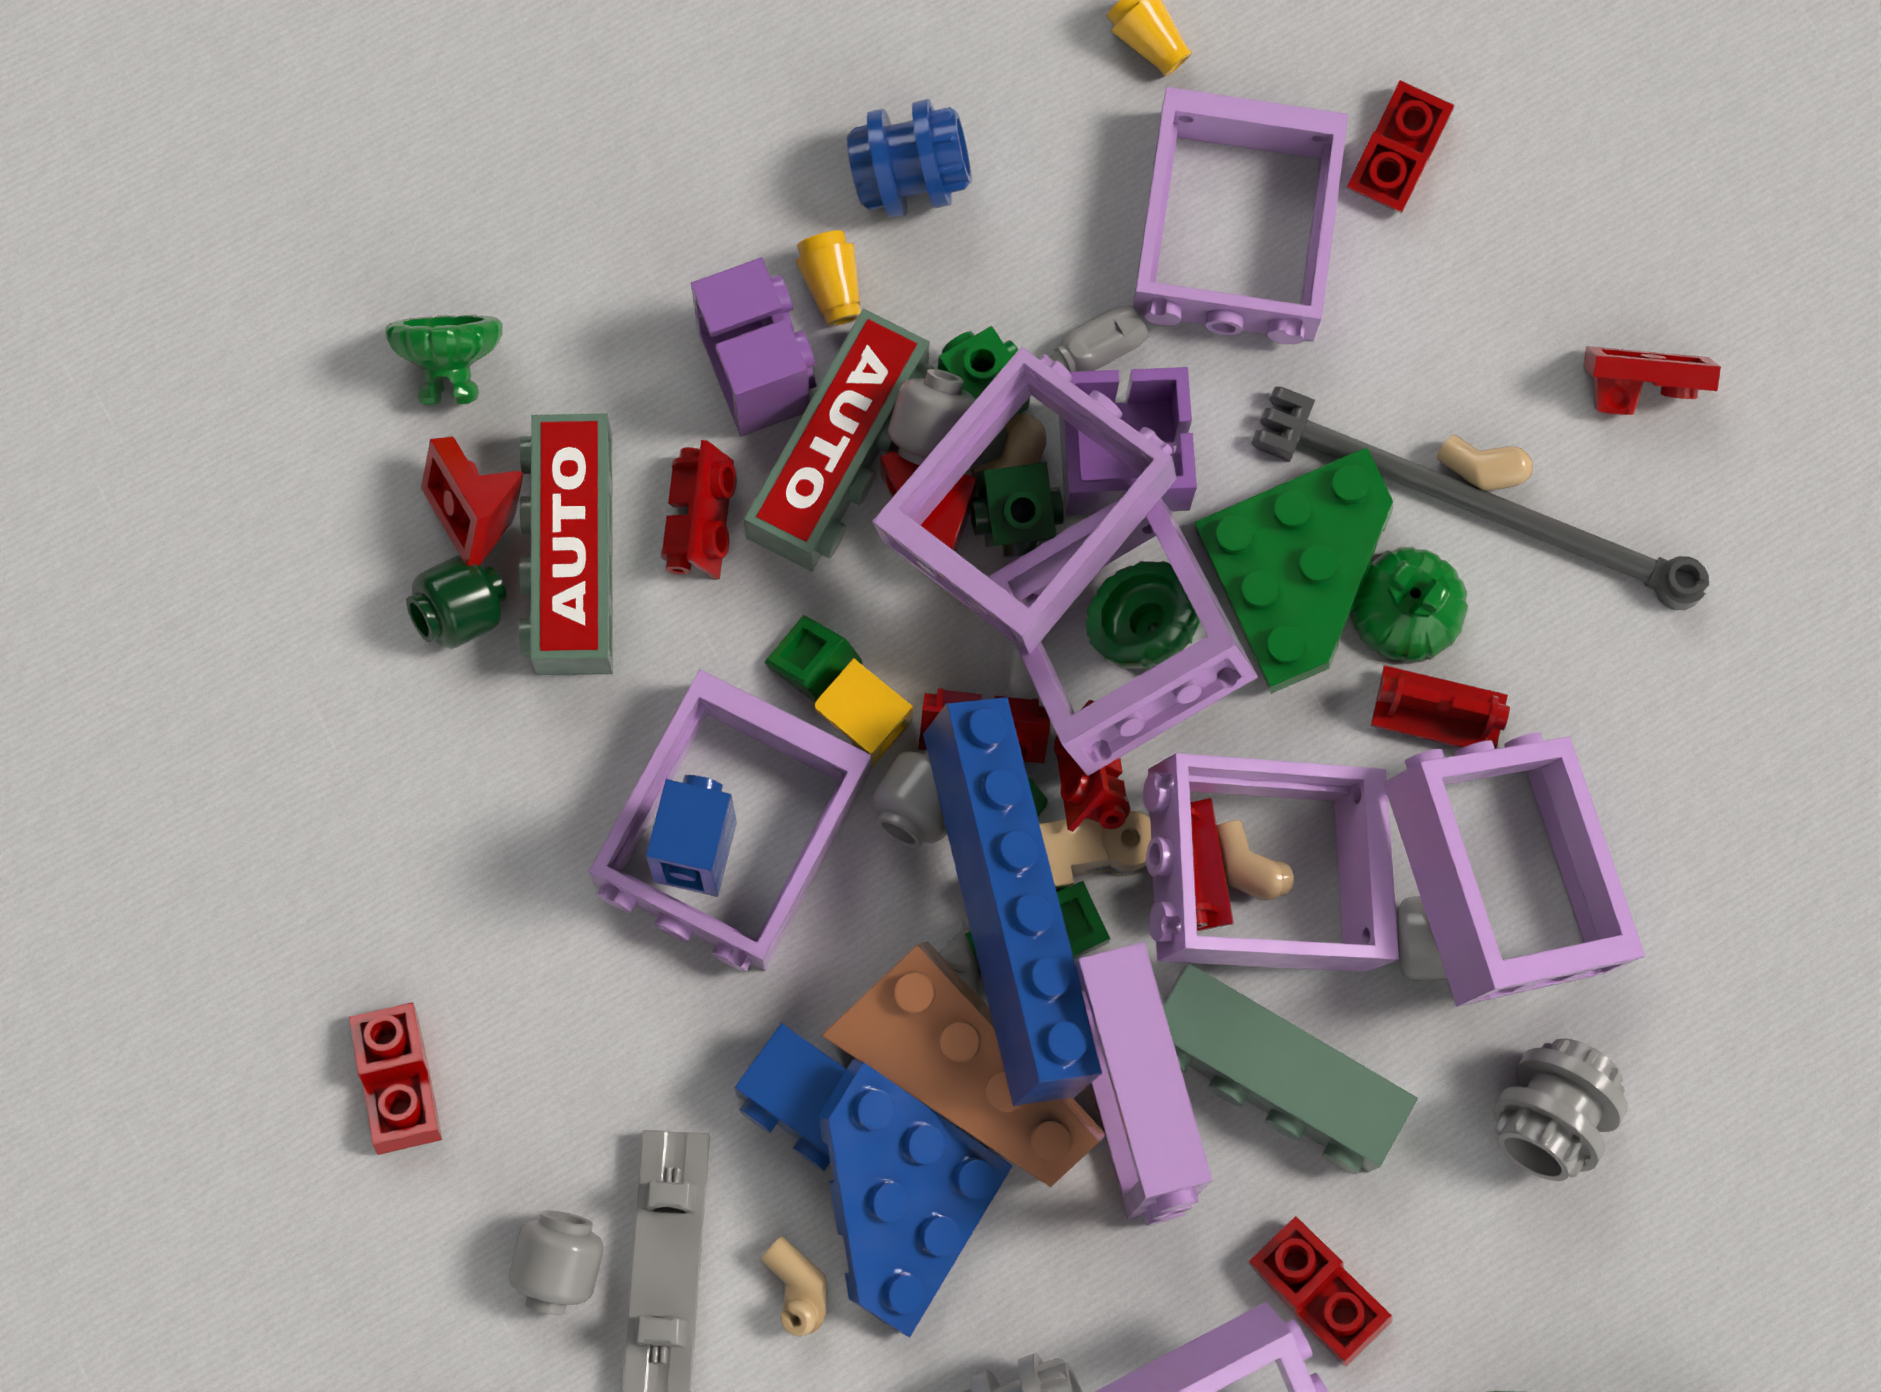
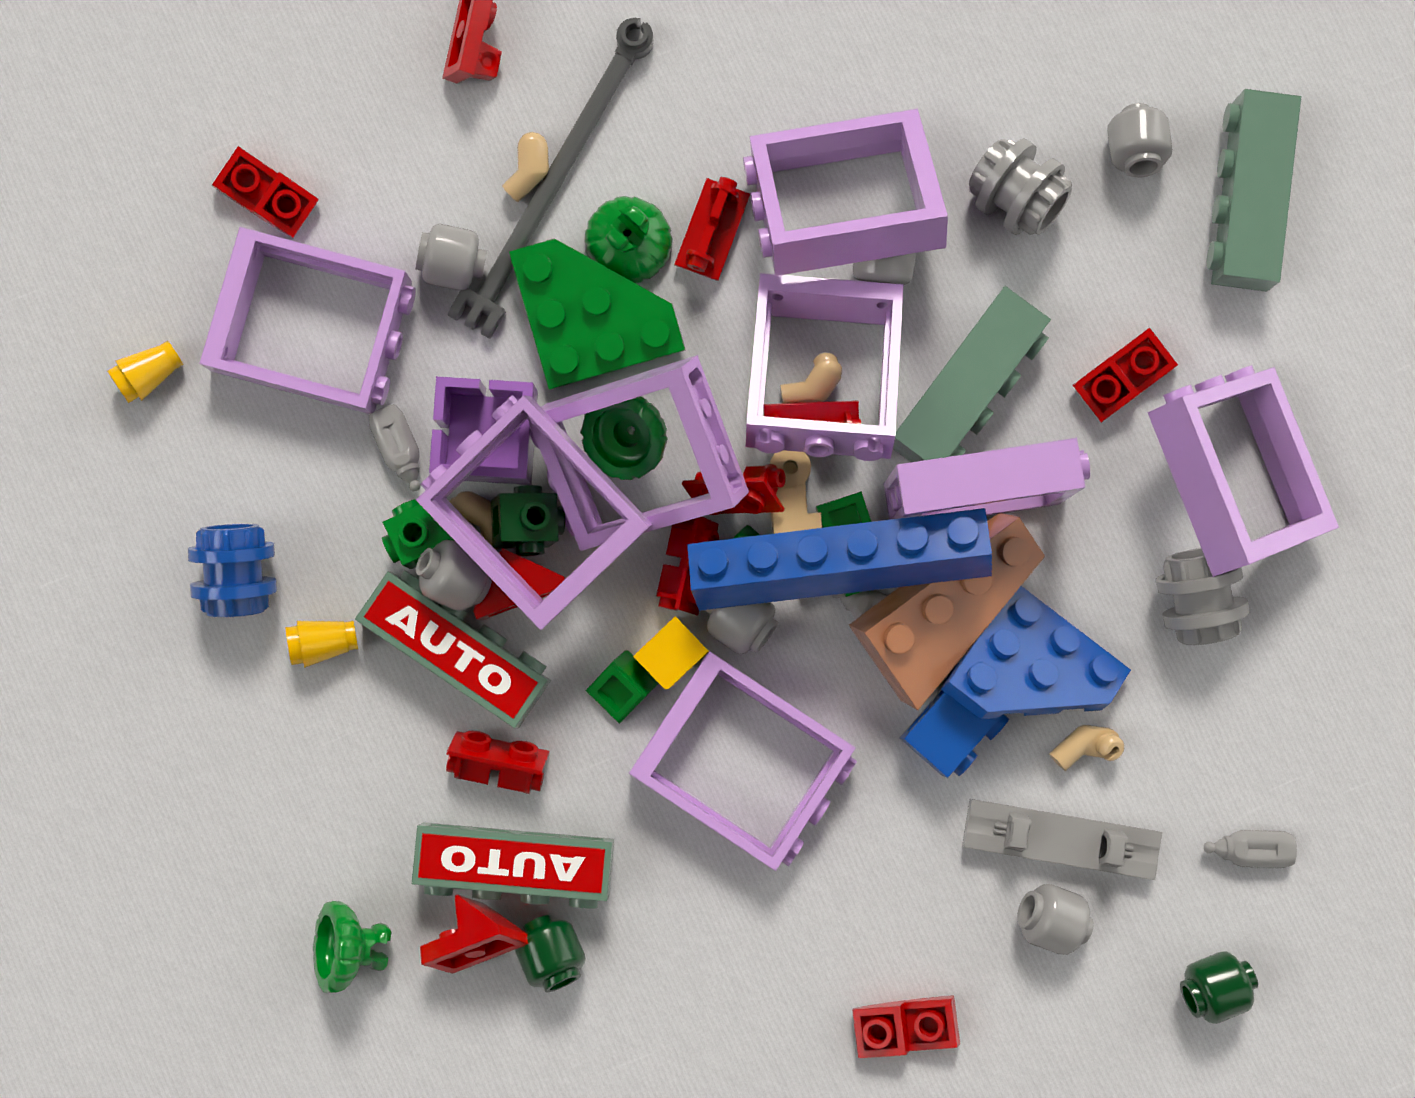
camera: 80 degrees left, 10 degrees up
(692, 835) = (767, 791): blue brick -> none
(754, 345) = (374, 708): medium lavender piece -> none
(1349, 377) = (450, 257): none -> light grey head
(1654, 1274) = (1139, 140): none -> light grey head

